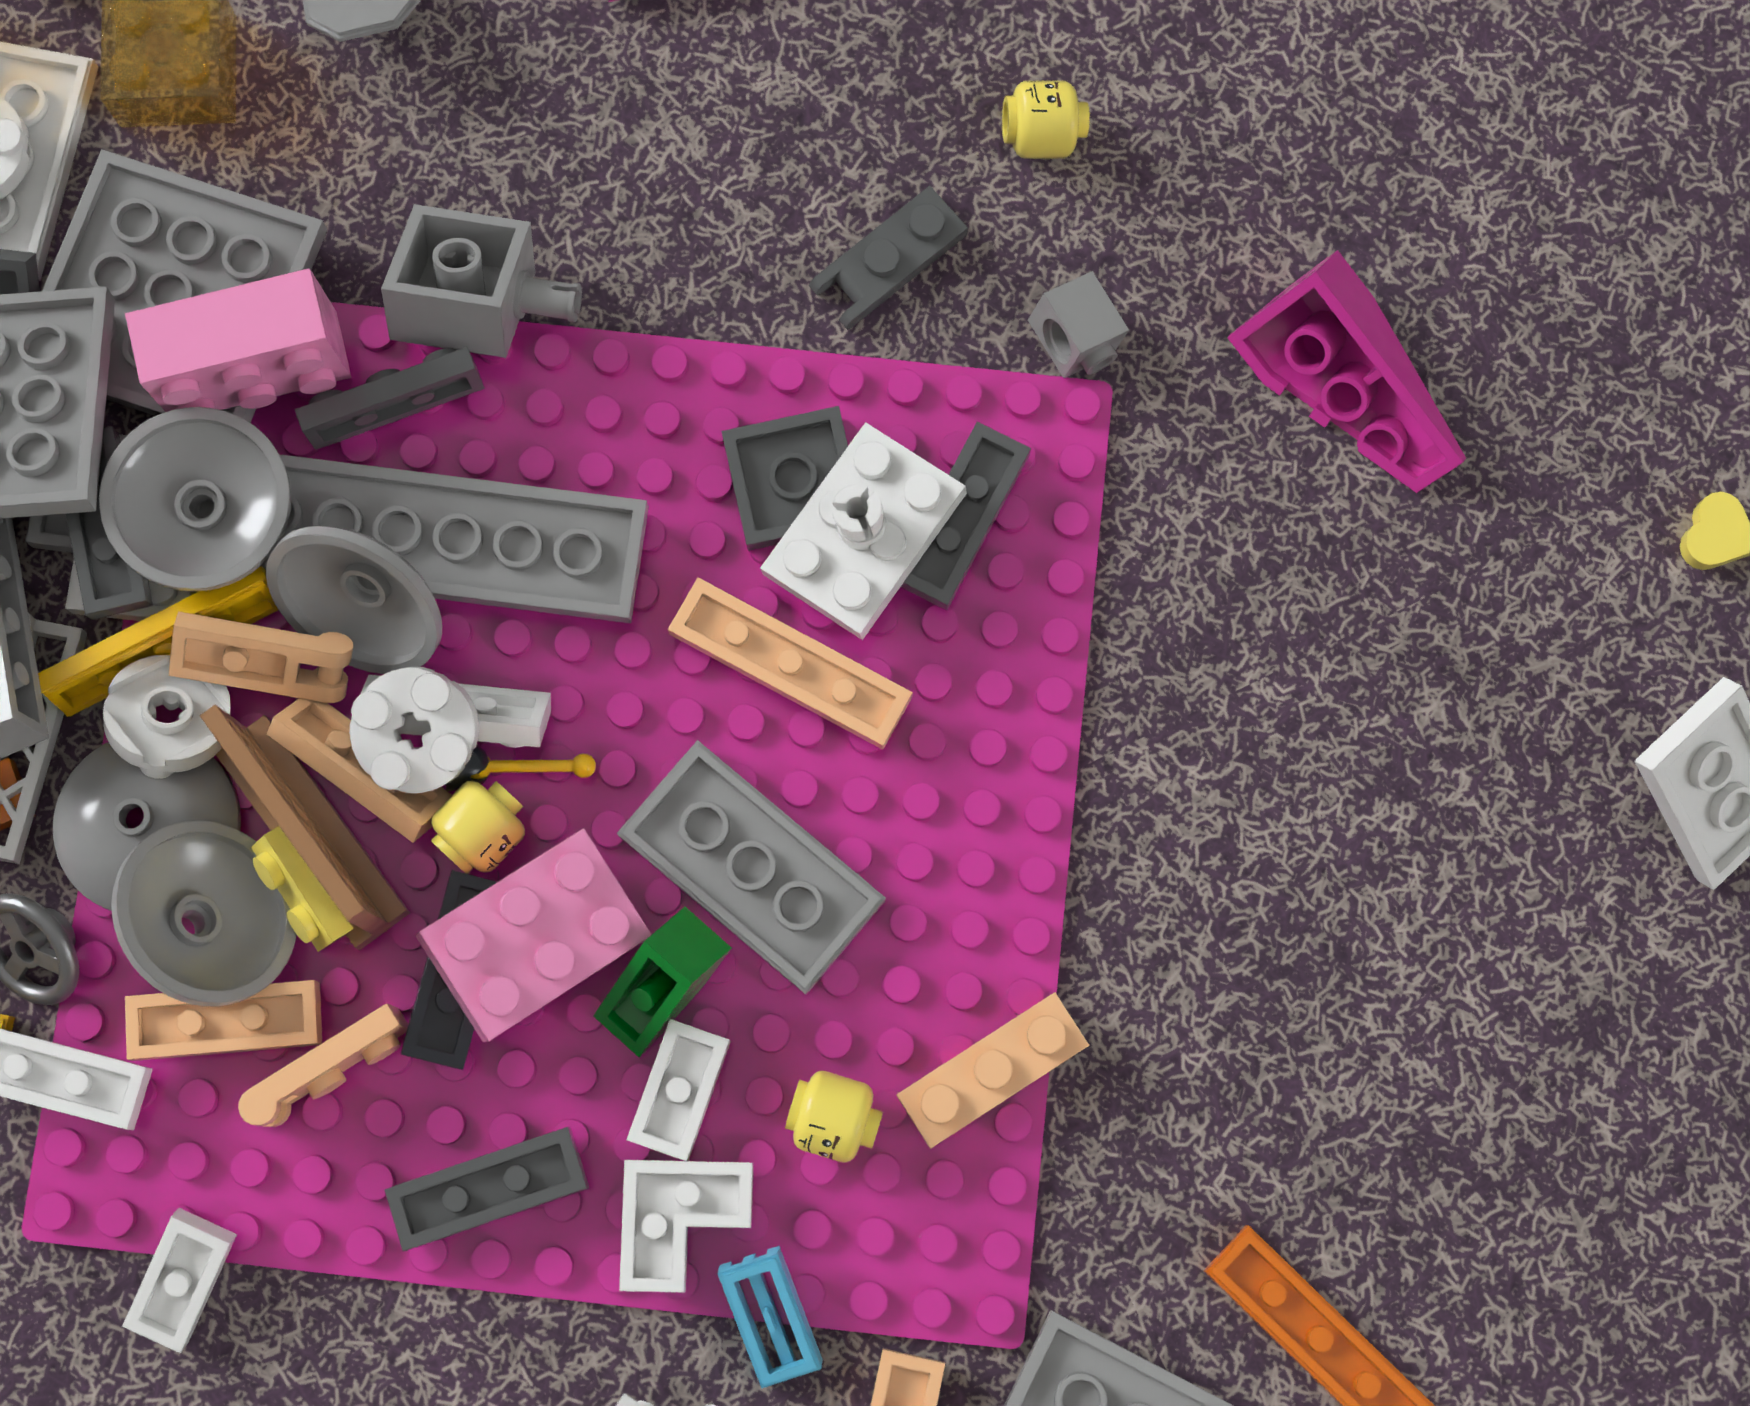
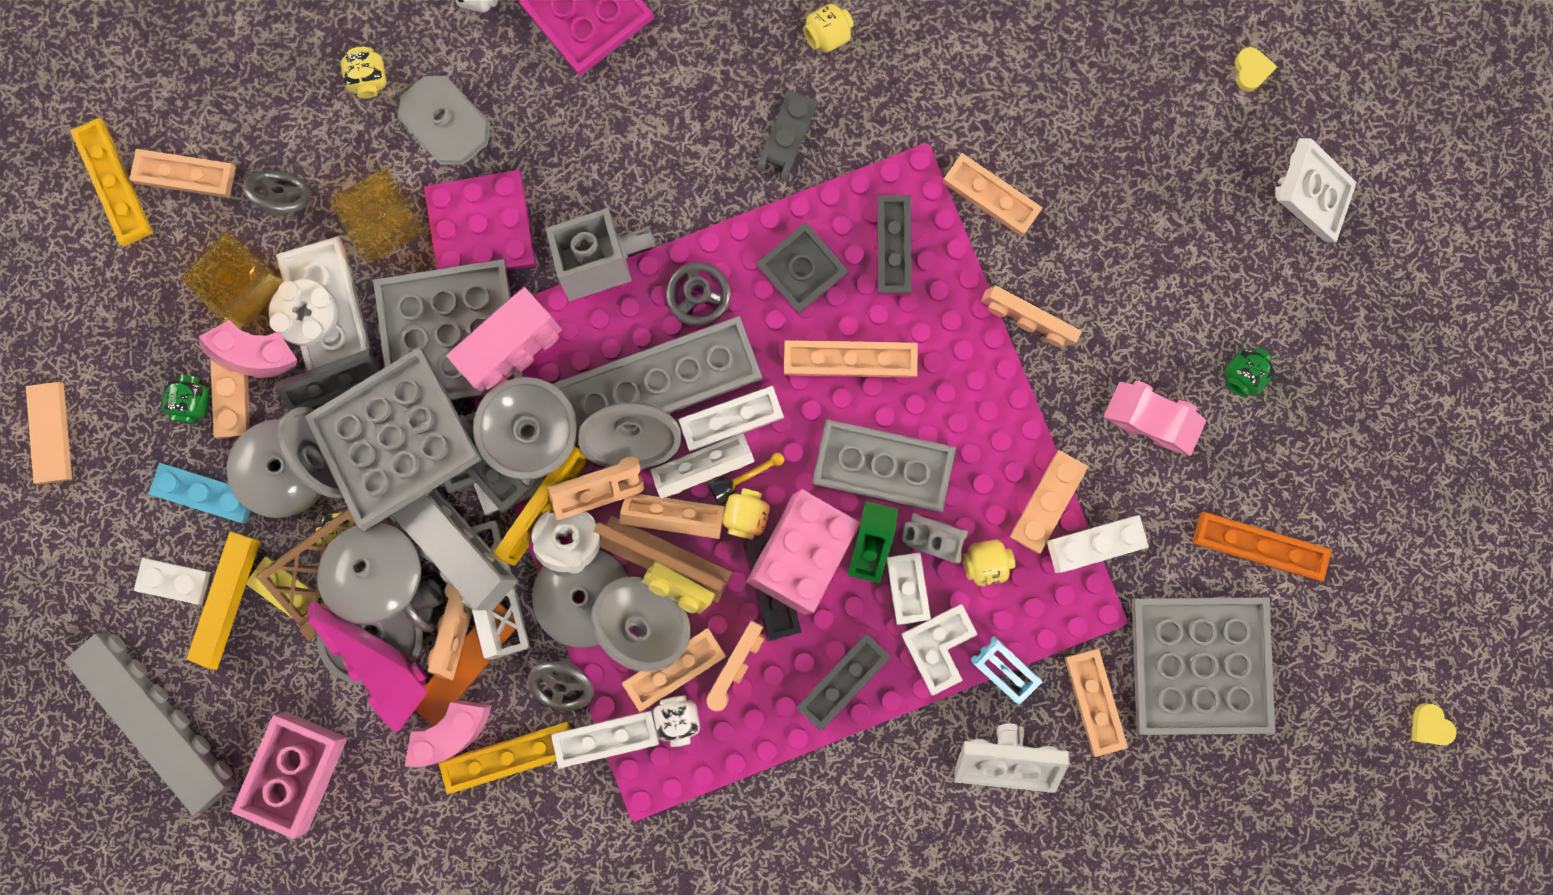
camera: 25 degrees left, 5 degrees up
(179, 1106) = (676, 720): none -> white head
(179, 1280) = (721, 800): white plate -> none
(328, 148) = (480, 221): none -> dark pink plate
(381, 713) = (692, 465): white plate -> none
(389, 397) = (585, 328): dark grey plate -> none
(543, 659) = (731, 418): none -> white plate
(602, 412) = (694, 282): none -> flat silver piece
(764, 1025) = (934, 537): none -> light grey hips
(863, 530) = (852, 276): white plate -> none
(1037, 1184) = (1097, 544): none -> white plate
(1078, 326) = (899, 123): light grey brick -> none
(1124, 748) = (1030, 317): none -> light nougat plate
(1171, 518) = (992, 194): none -> light nougat plate
(1255, 1032) = (1149, 414): none -> bright pink brick
(1345, 362) = (1034, 75): dark pink wedge -> none
(1450, 1031) = (1249, 372): none -> green head

